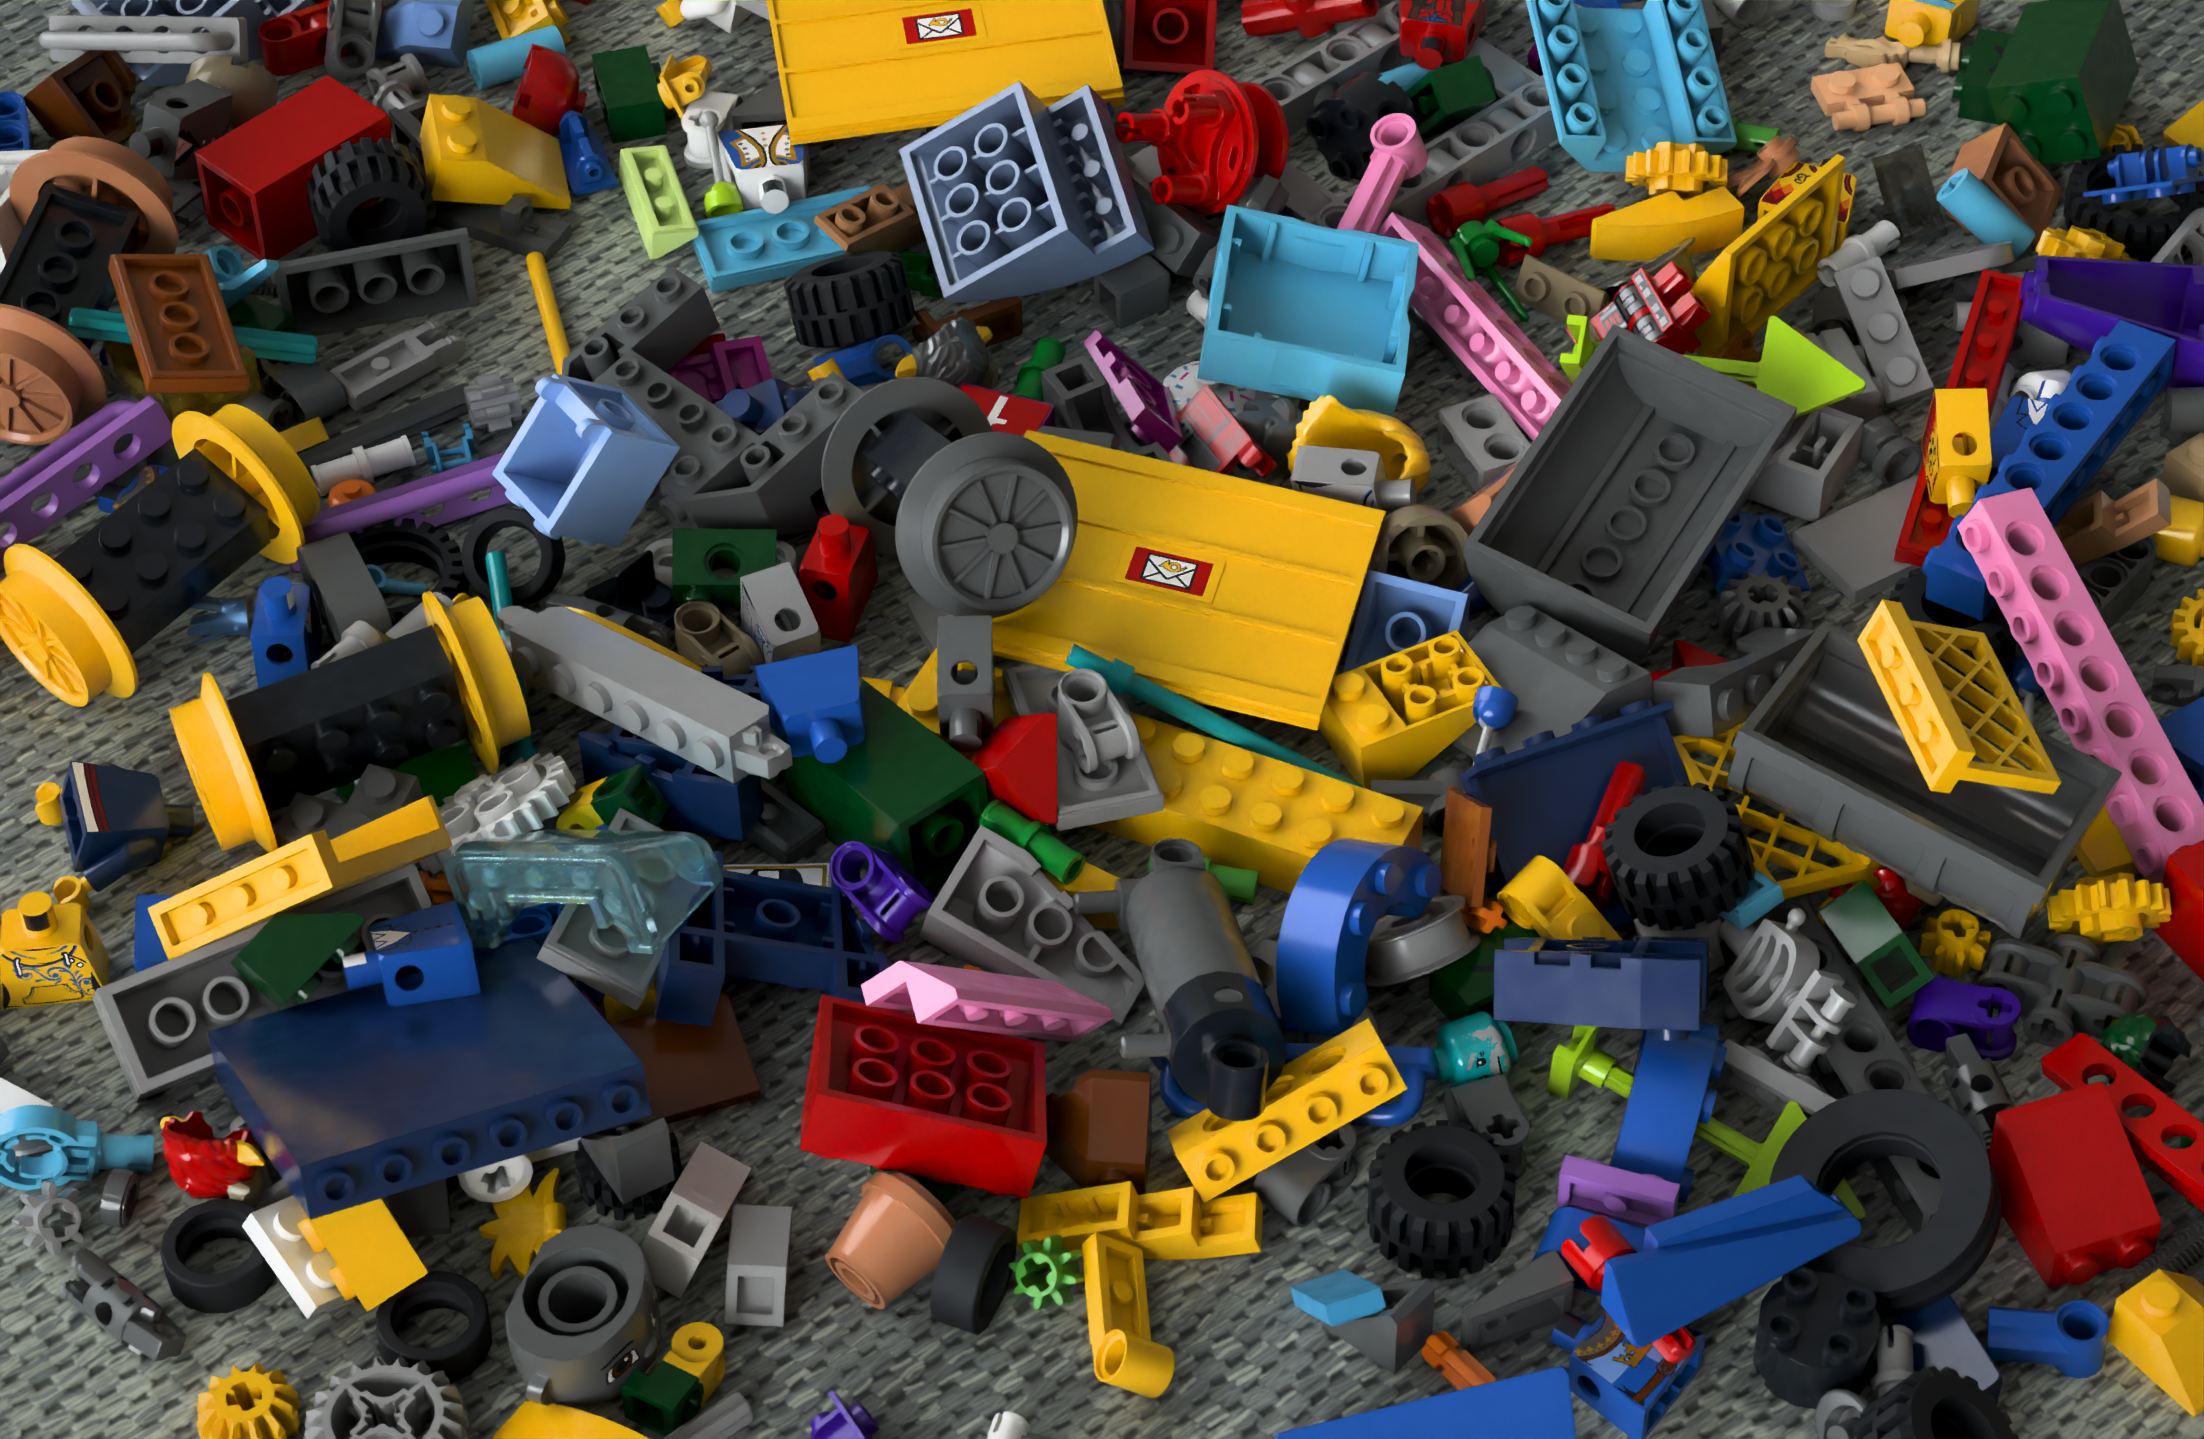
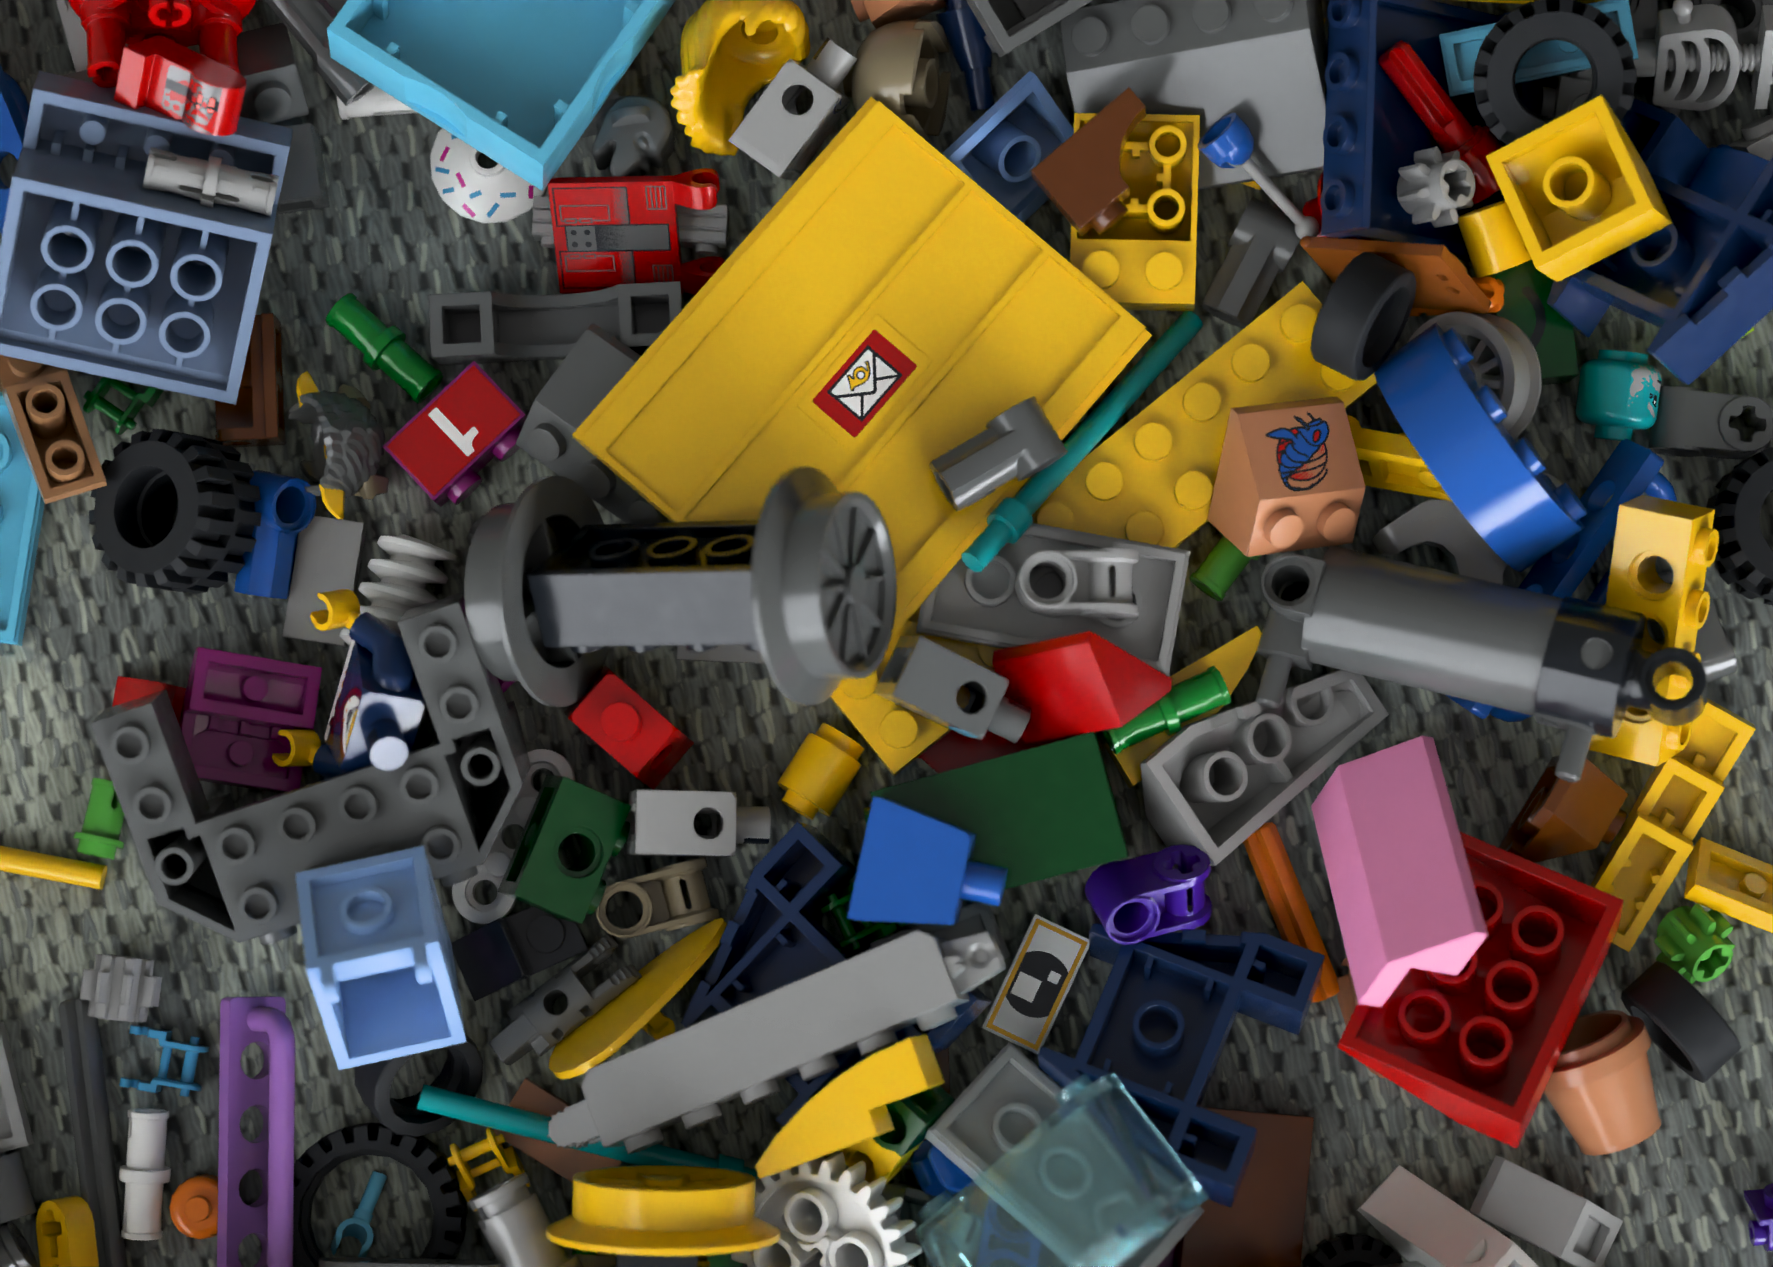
camera: 65 degrees left, 40 degrees up
(613, 737) = (853, 1105): none -> yellow slope
(1085, 196) = (210, 181): none -> light grey pin
(1138, 391) = (513, 259): magenta wing -> none
(1140, 157) = (181, 85): none -> red leg
(1172, 651) = (1010, 448): none -> dark grey piece
(1259, 834) = (1288, 478): none -> nougat slope
(1417, 771) = (1363, 316): none -> black tyre
(1420, 627) = (1085, 170): none -> reddish brown arch
(1554, 821) = (1436, 187): none -> light grey gear
(1592, 883) = (1578, 190): none -> yellow slope

